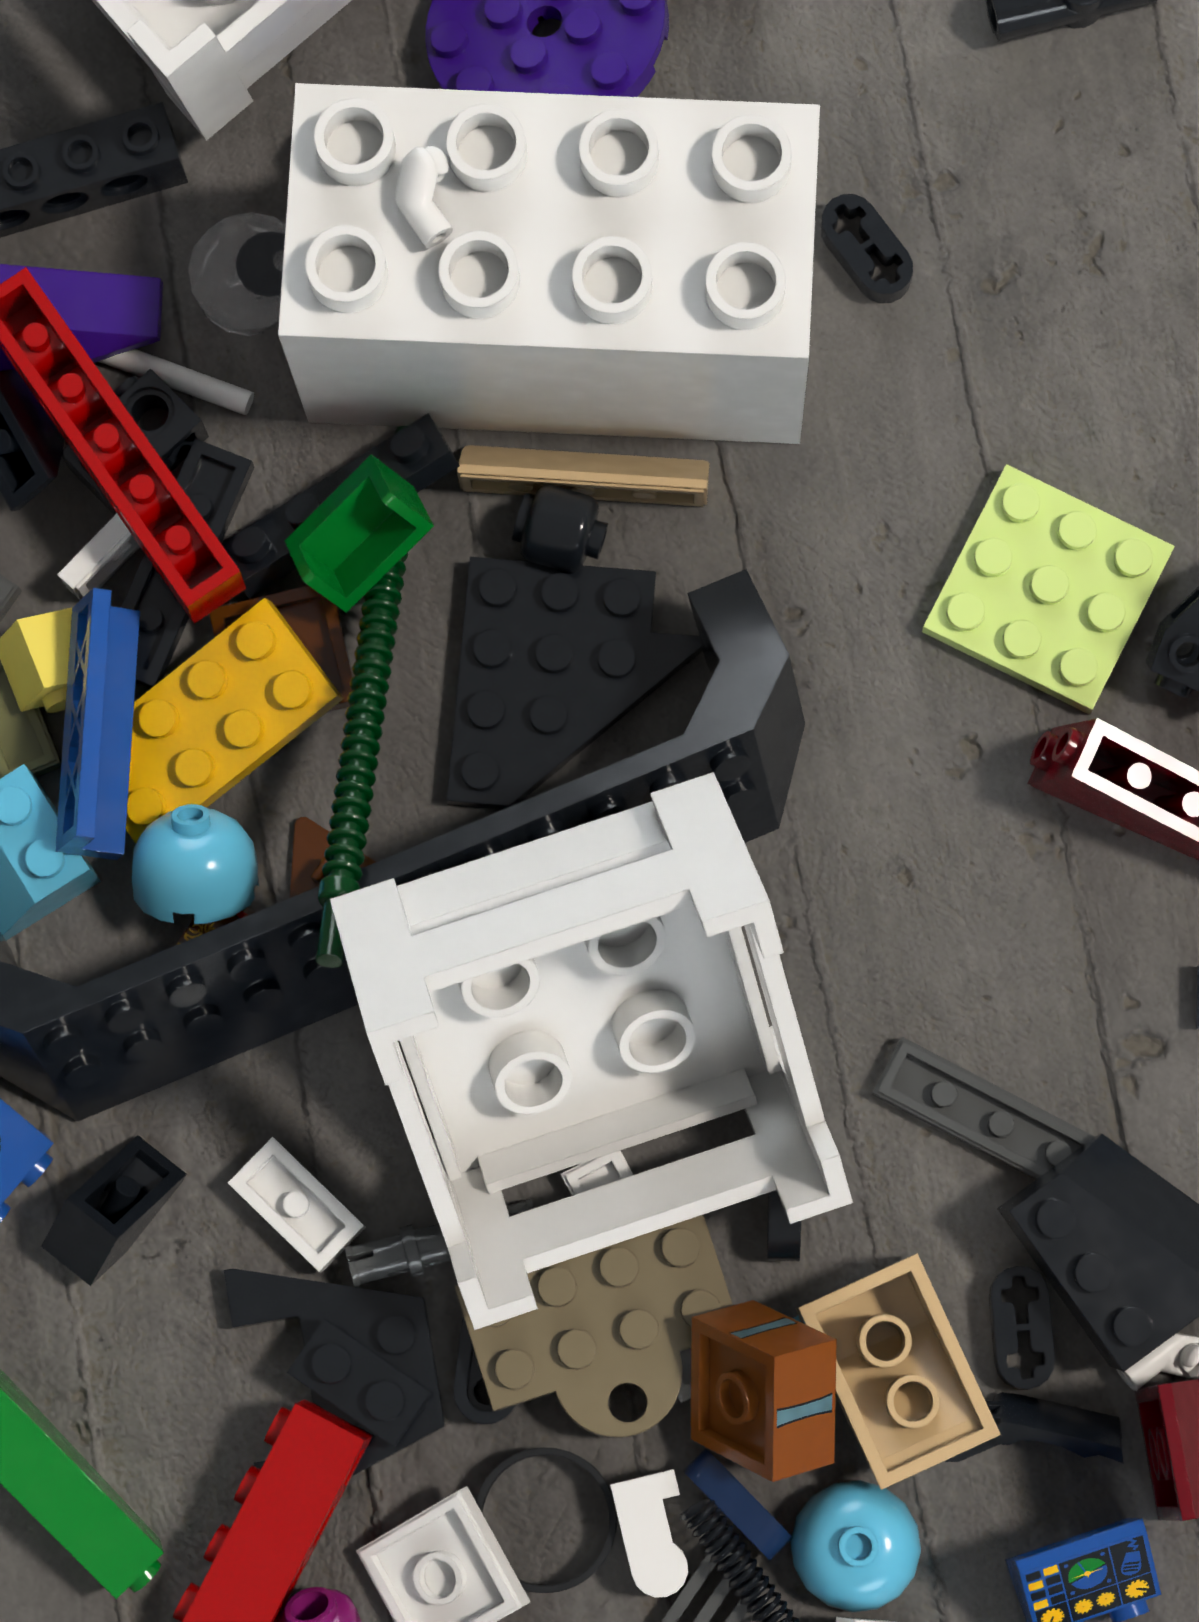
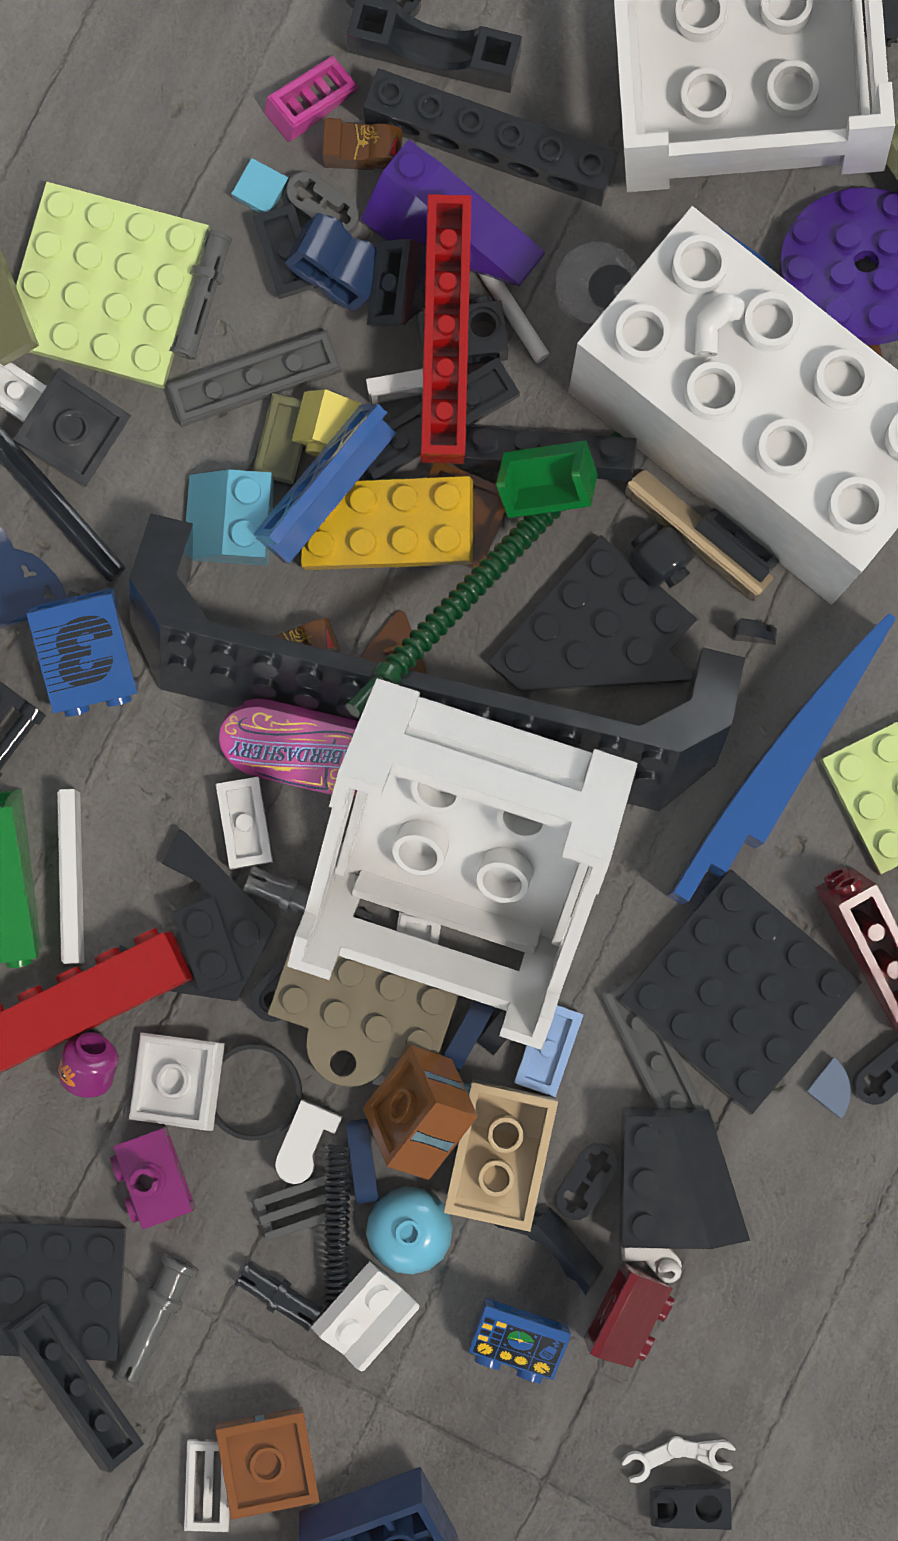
camera: 30 degrees right, 5 degrees up
(112, 1210) = (143, 752): black slope -> none
(133, 1425) = (70, 876): none -> white tile
(194, 865) = (323, 598): medium azure cylinder -> none
(282, 1069) = (286, 743): none -> dark pink tile
(637, 451) = (737, 544): none -> black tile
(729, 540) = (750, 631): none -> black tile
(750, 1252) = (468, 1033): none -> dark blue beam
(869, 1227) = (544, 1068): none -> light blue plate
(885, 684) = (777, 773): none -> blue slope
(1033, 968) = (740, 991): none -> black plate

